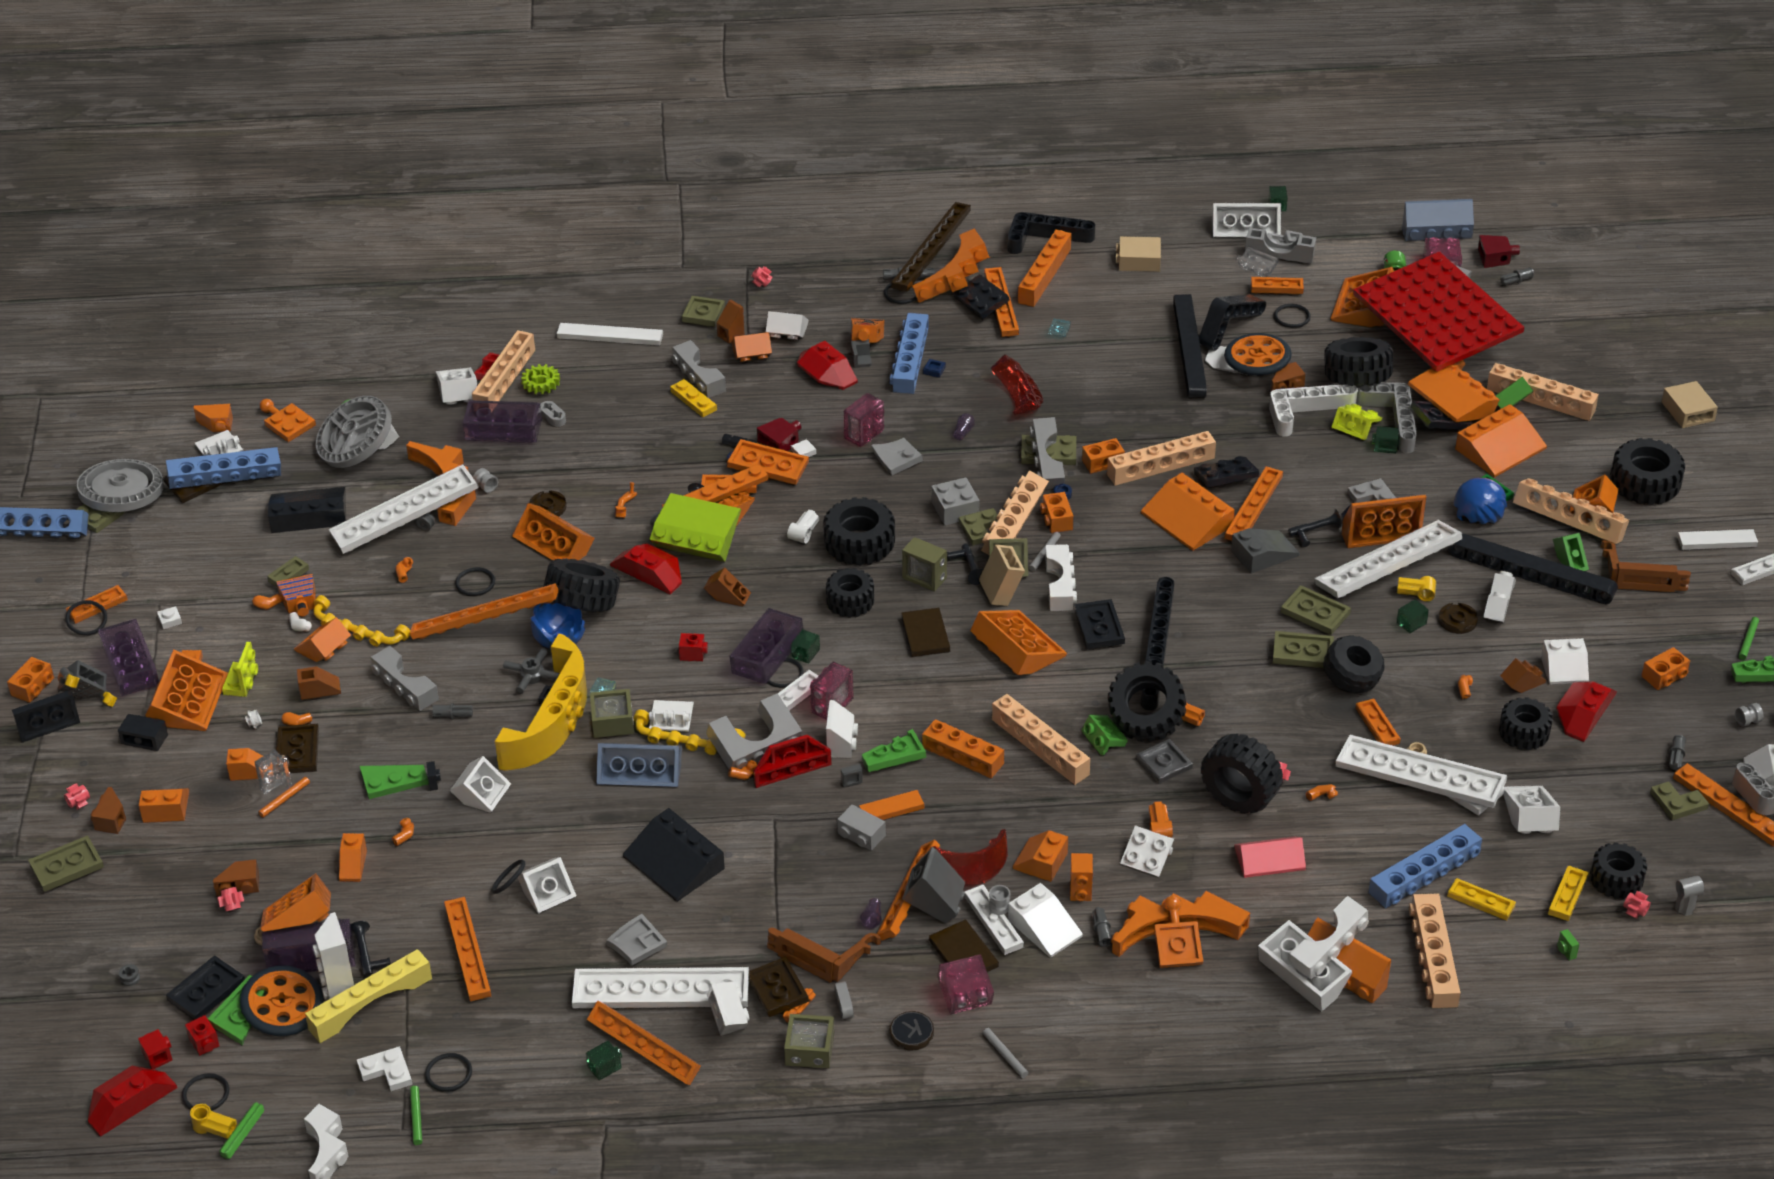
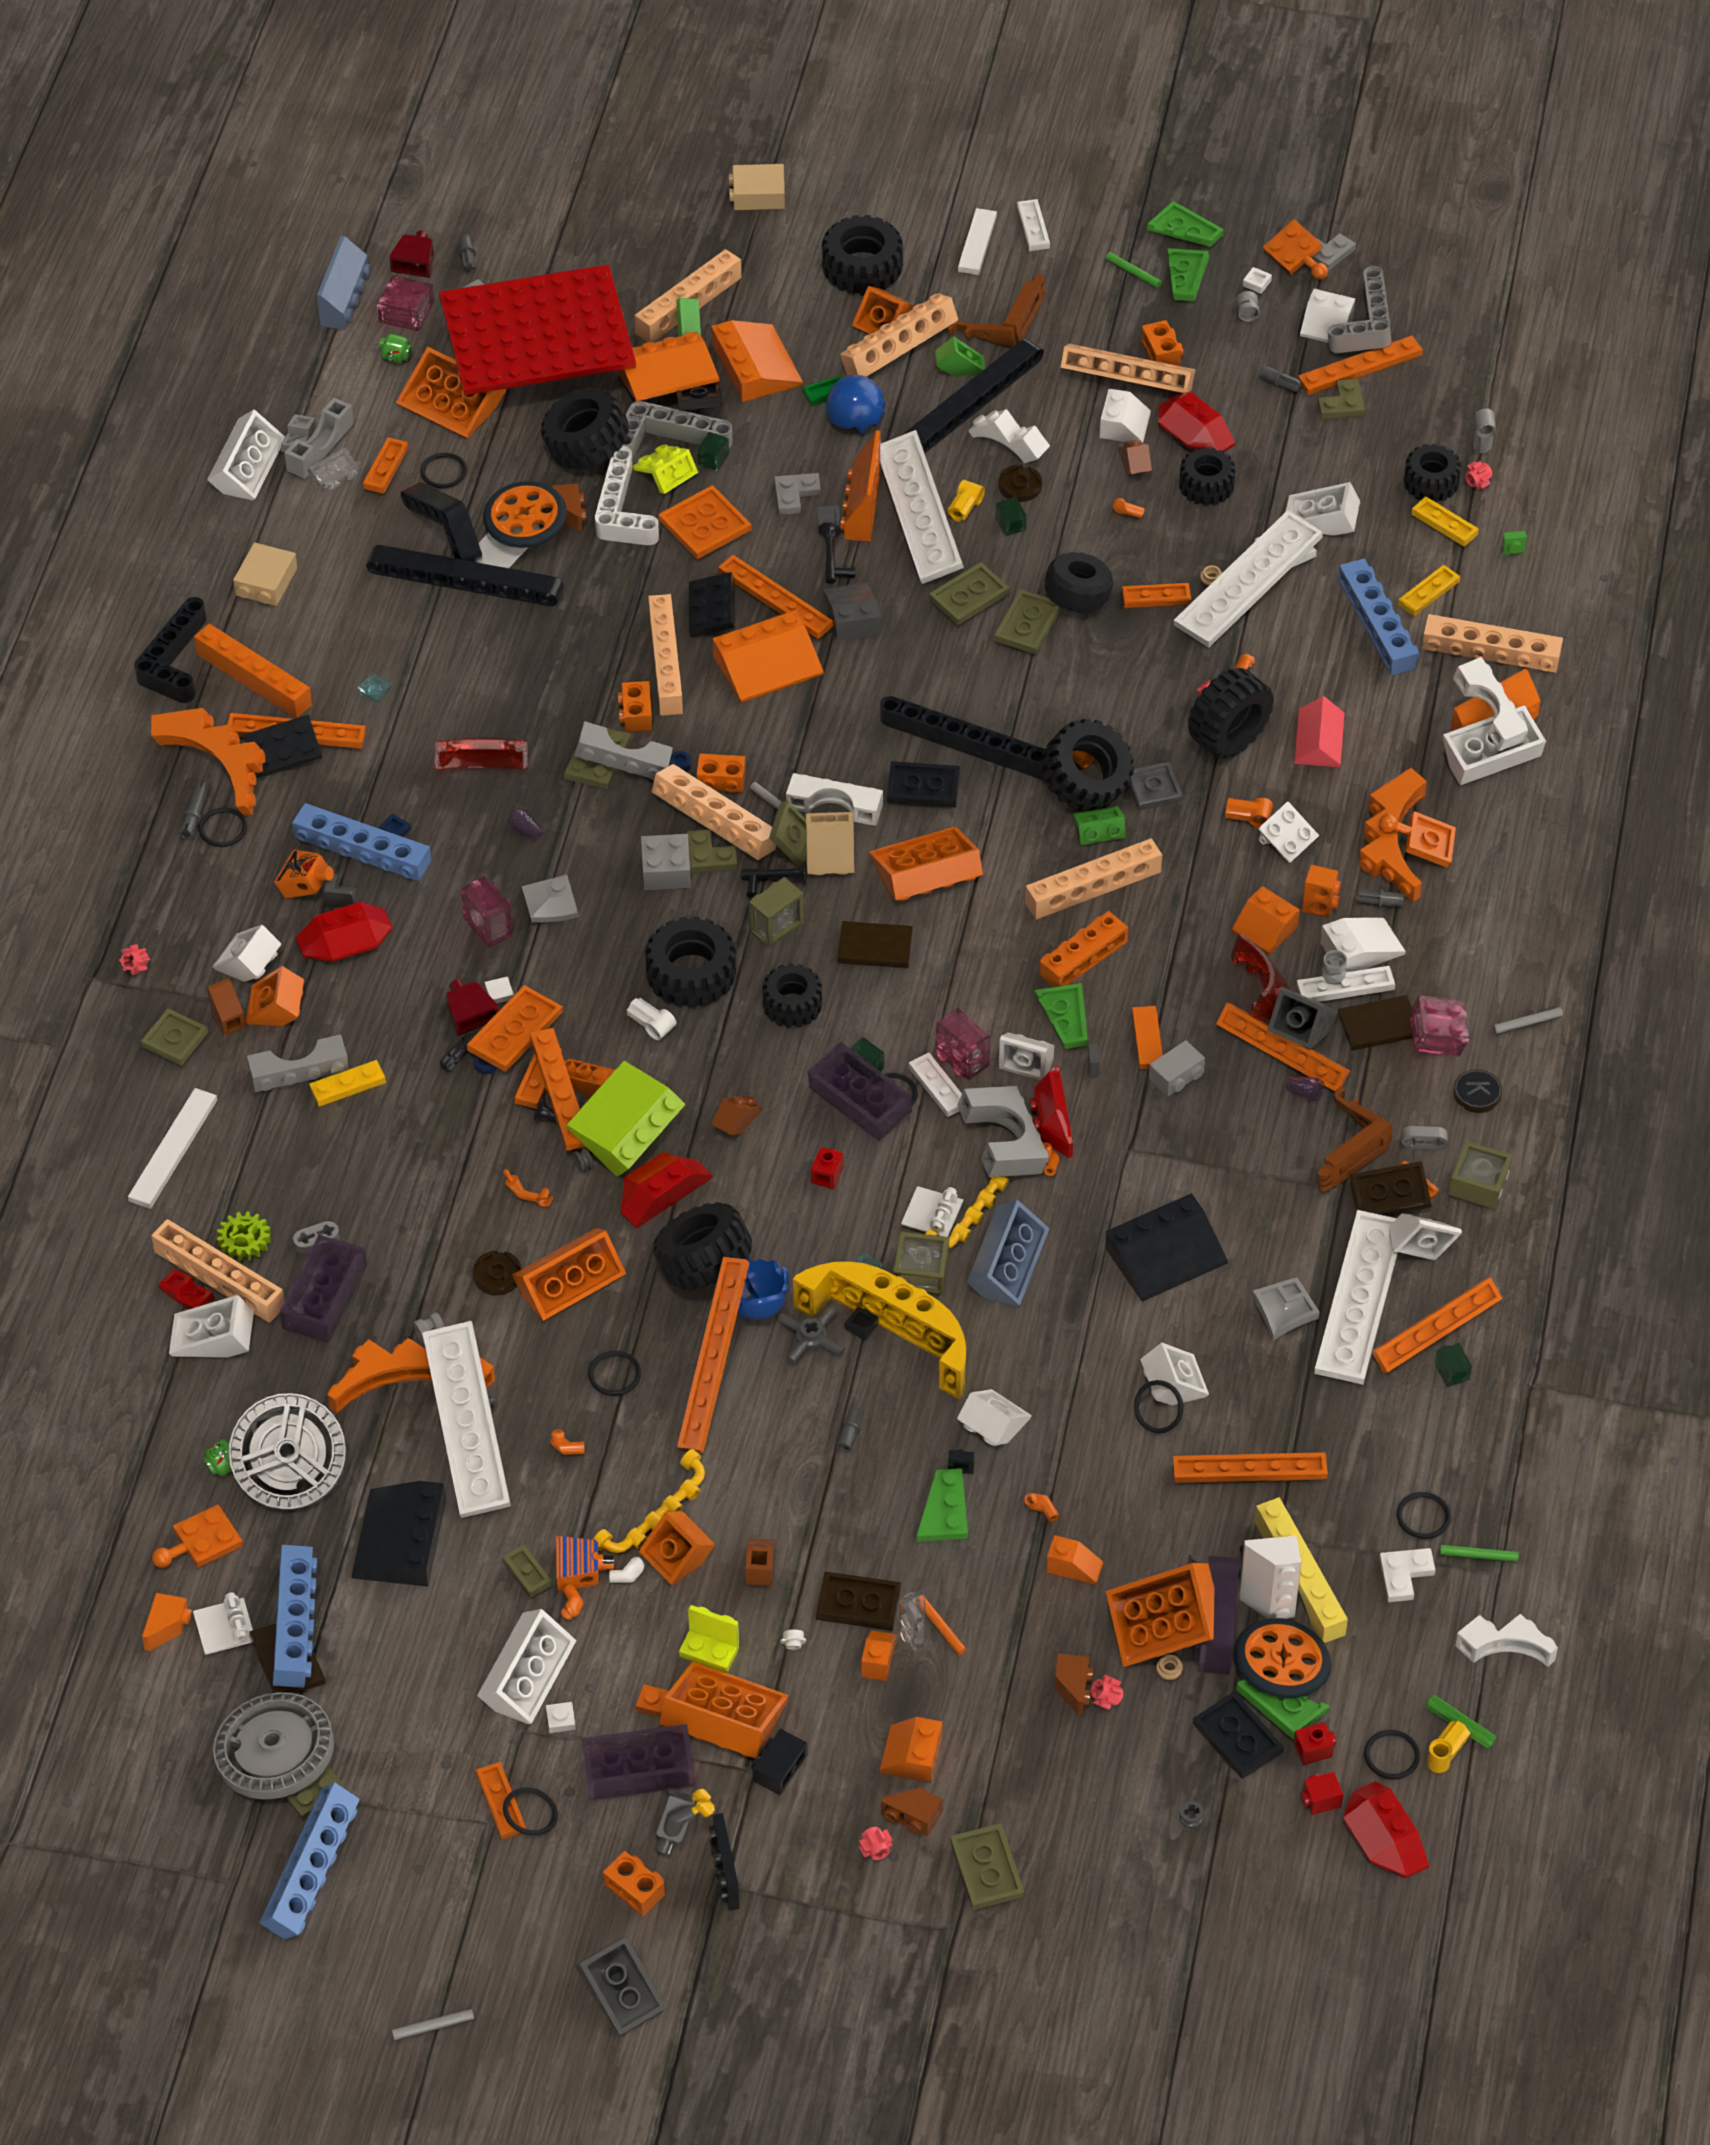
camera: 75 degrees left, 10 degrees up
(204, 589) = (527, 1666): none -> white slope
(293, 719) = (809, 1596): orange arm -> none
(416, 690) = (752, 1481): light grey arch -> none
(930, 246) = (160, 769): dark brown plate -> none
(1278, 194) = (216, 415): clear green brick -> none
(1311, 452) = (705, 522): none -> orange plate
(1621, 651) = (1127, 368): none -> light nougat brick

